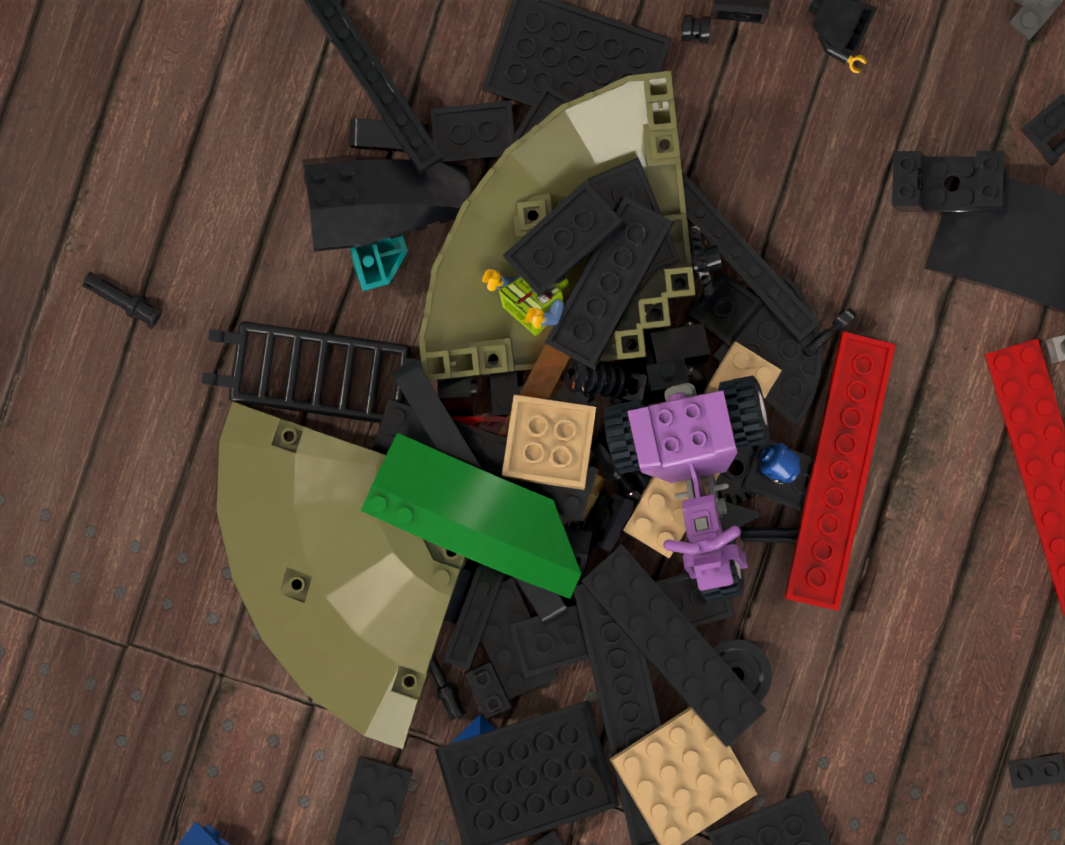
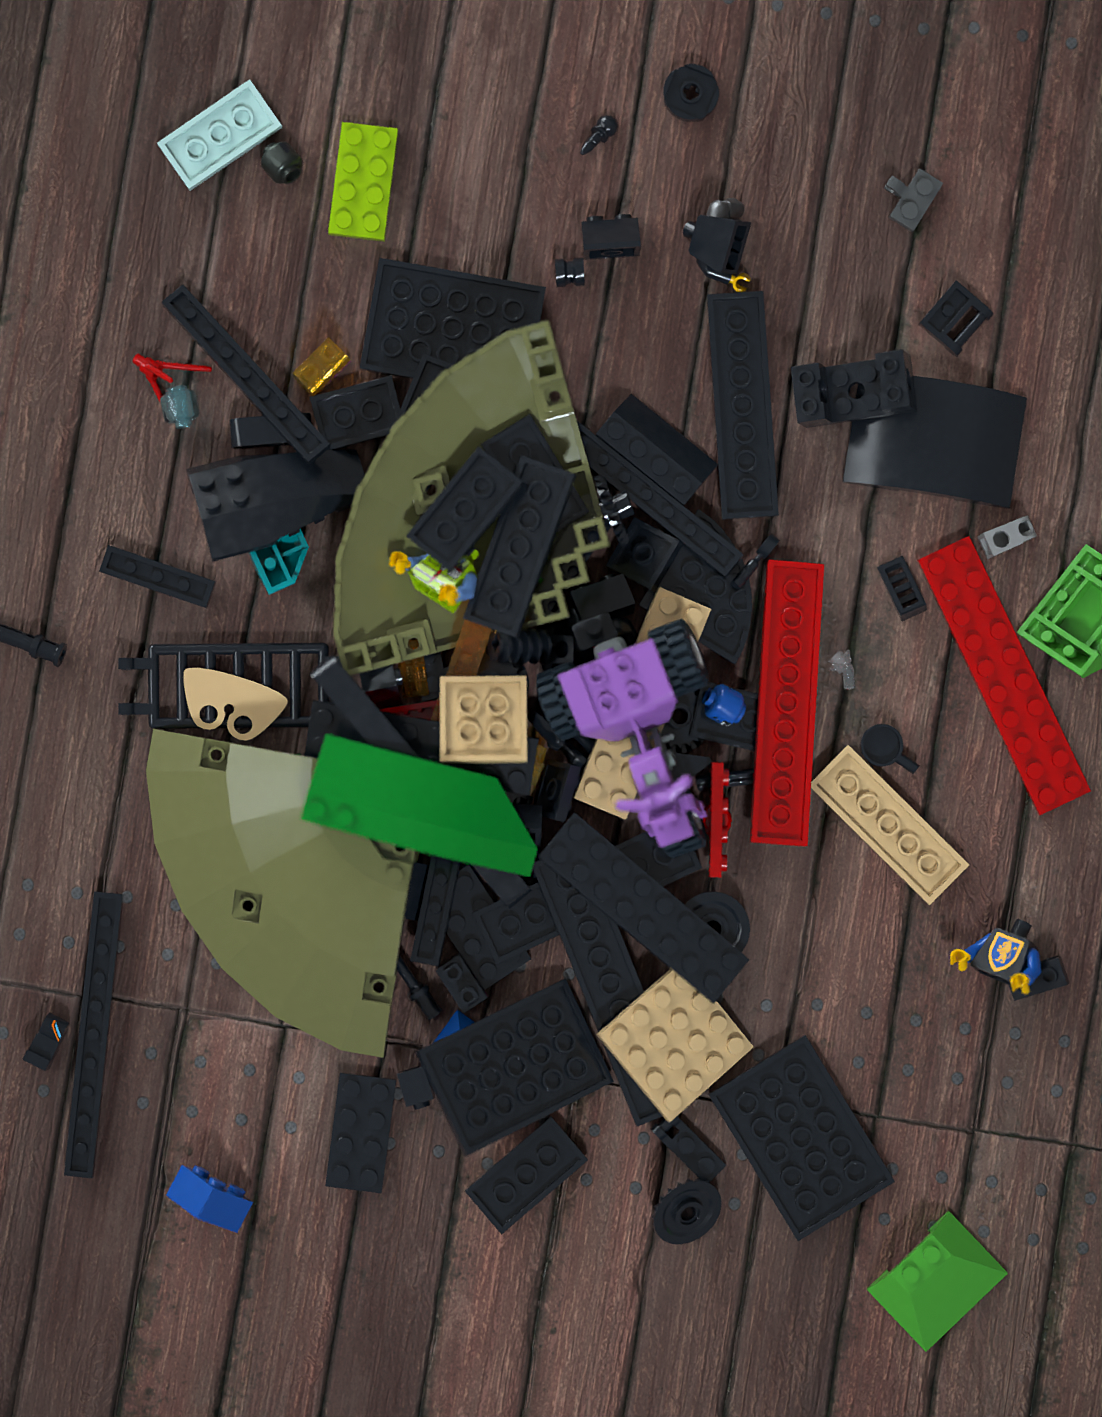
camera: 10 degrees left, 0 degrees up
(85, 684) = (47, 1042): none -> black leg
(130, 684) = (93, 1034): none -> black plate
(258, 257) = (157, 576): none -> black plate
(286, 60) = (154, 369): none -> red plant
(300, 374) = (248, 698): none -> tan piece
(305, 99) = (179, 406): none -> clear light blue head
(429, 782) = (415, 1087): none -> black brick
(440, 84) = (316, 369): none -> clear yellow hips
(488, 389) = (414, 675): none -> clear orange tile
(752, 210) = (656, 449): none -> black slope
(757, 572) = (718, 819): none -> red plate
(840, 181) = (742, 405): none -> black plate
(897, 441) = (842, 663): none -> clear plate
(918, 602) = (888, 825): none -> tan plate
(925, 526) = (883, 746): none -> black piece
(969, 402) = (912, 610): none -> black slope
(1009, 745) = (1003, 957): none -> torso

